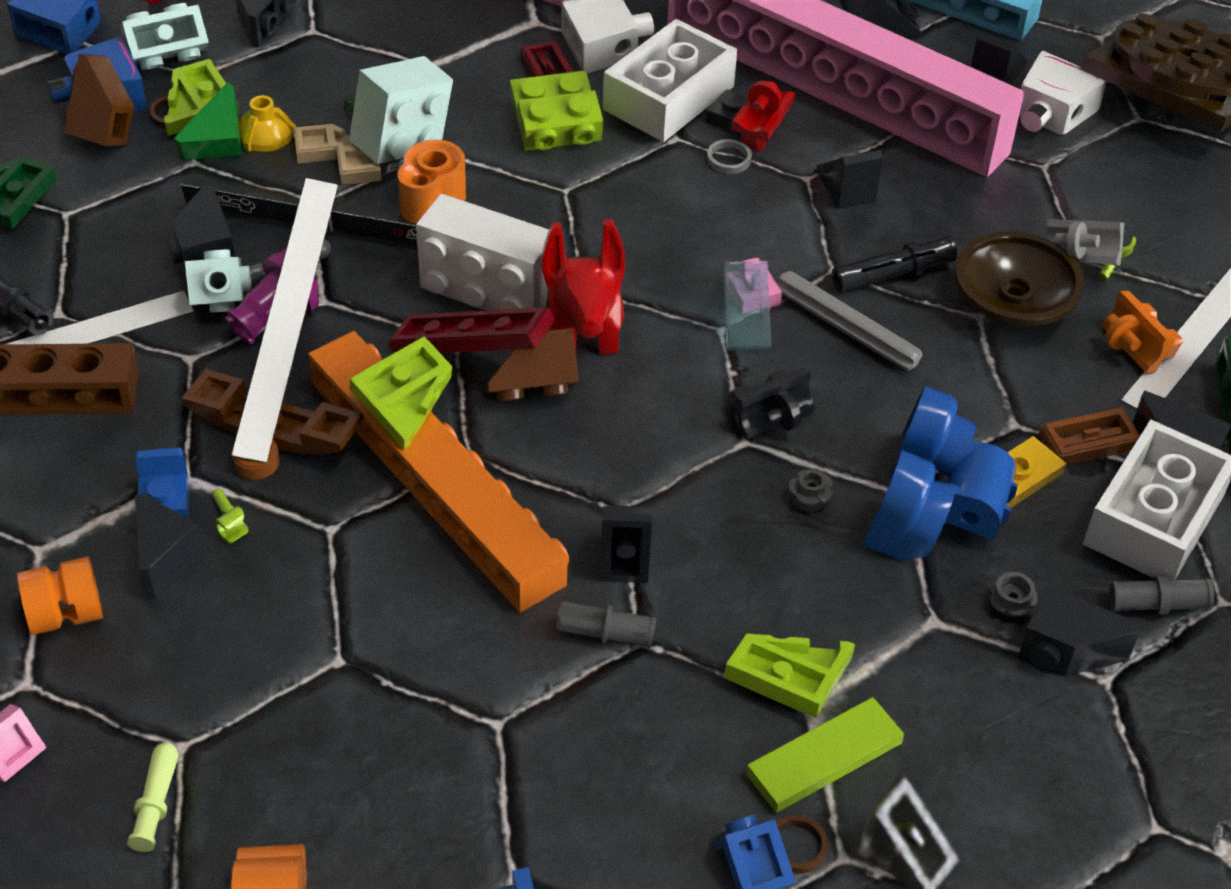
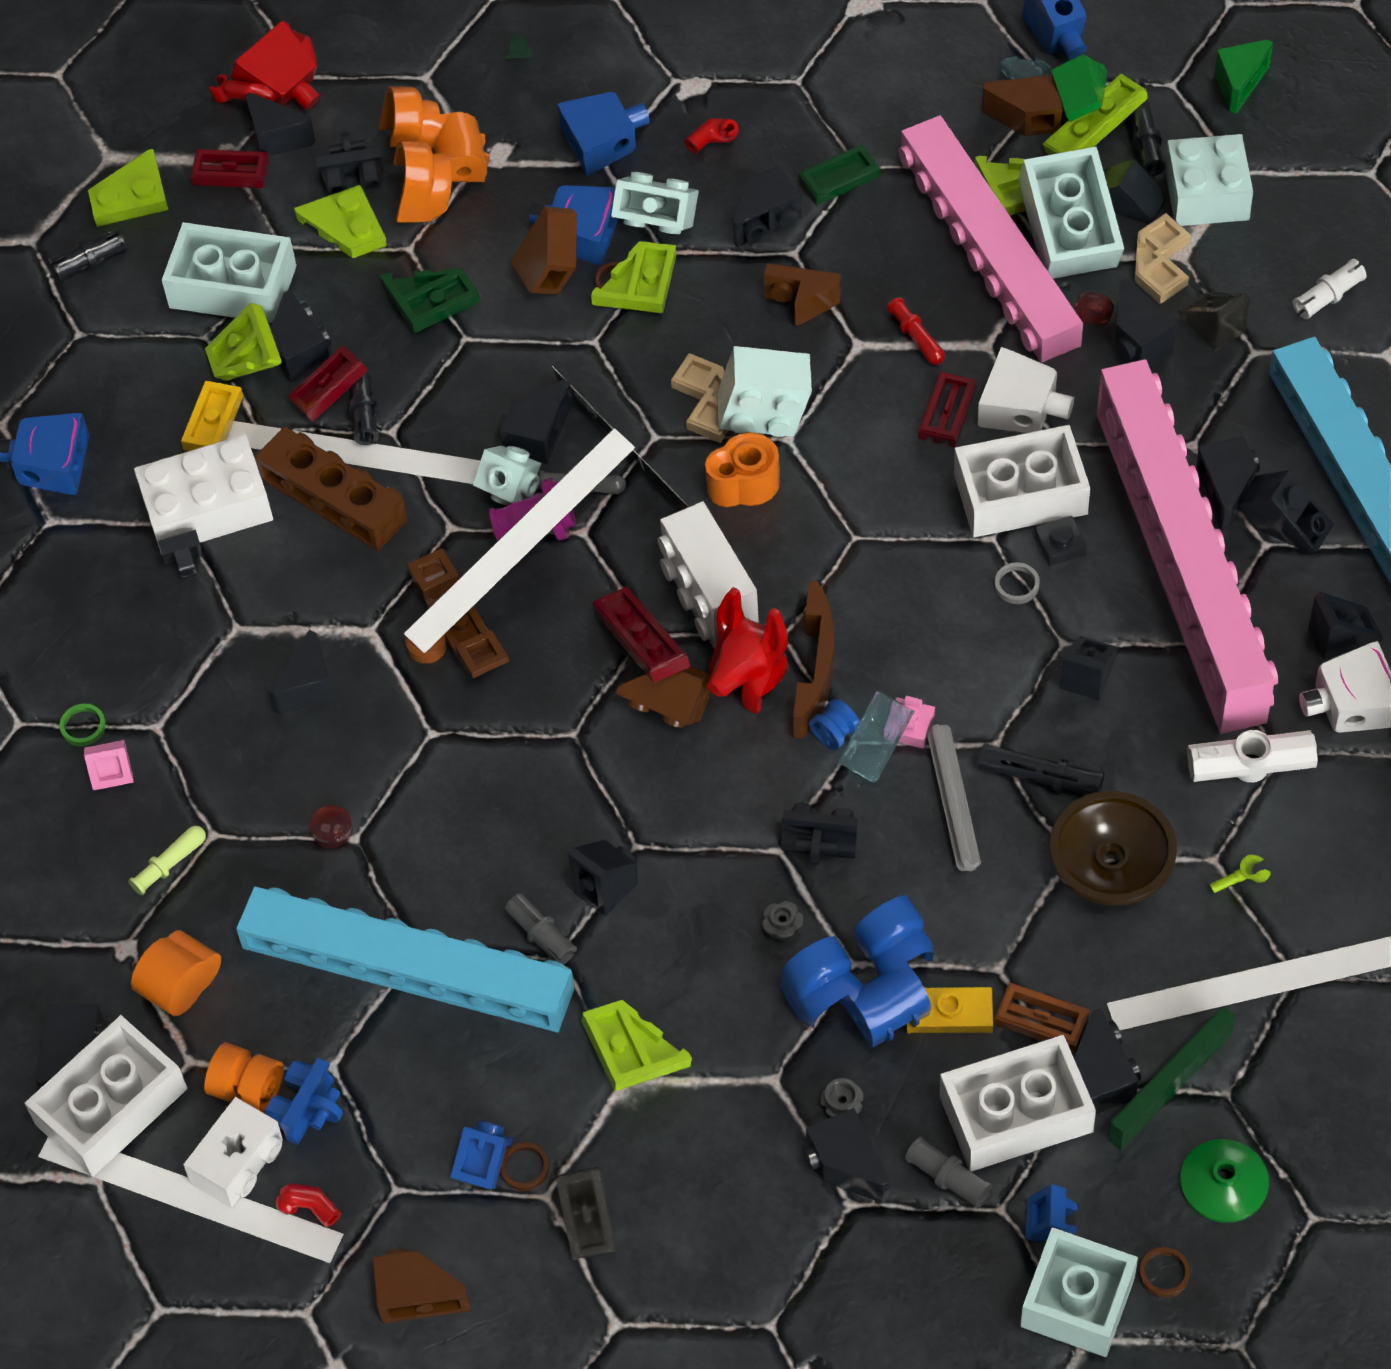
camera: 45 degrees right, 10 degrees up
(59, 595) = (219, 678): orange wheel -> none
(164, 477) = (345, 629): blue bracket -> none
(213, 129) = (623, 322): green slope -> none
(230, 524) = (367, 688): lime hand -> none
(265, 126) = (670, 343): yellow piece -> none
(306, 662) = (331, 826): none -> clear red tile
(353, 39) = (809, 289): none -> reddish brown slope
(403, 388) = (544, 657): lime wing -> none
(451, 486) = (531, 734): orange brick -> none
(463, 30) = (912, 325): none -> red piece
(497, 730) = (406, 958): none -> medium azure brick
(556, 110) = (907, 456): lime plate -> none
(641, 278) = (812, 697): none -> reddish brown slope
(699, 318) = (834, 724): none -> blue wheel
(762, 114) = (1071, 559): red hips -> none
(824, 754) = (598, 1120): lime tile -> none
(1035, 171) = (1229, 757): none -> white piece
(1088, 240) = (1206, 851): light grey hips -> none
(1138, 332) = (1163, 954): orange hips -> none

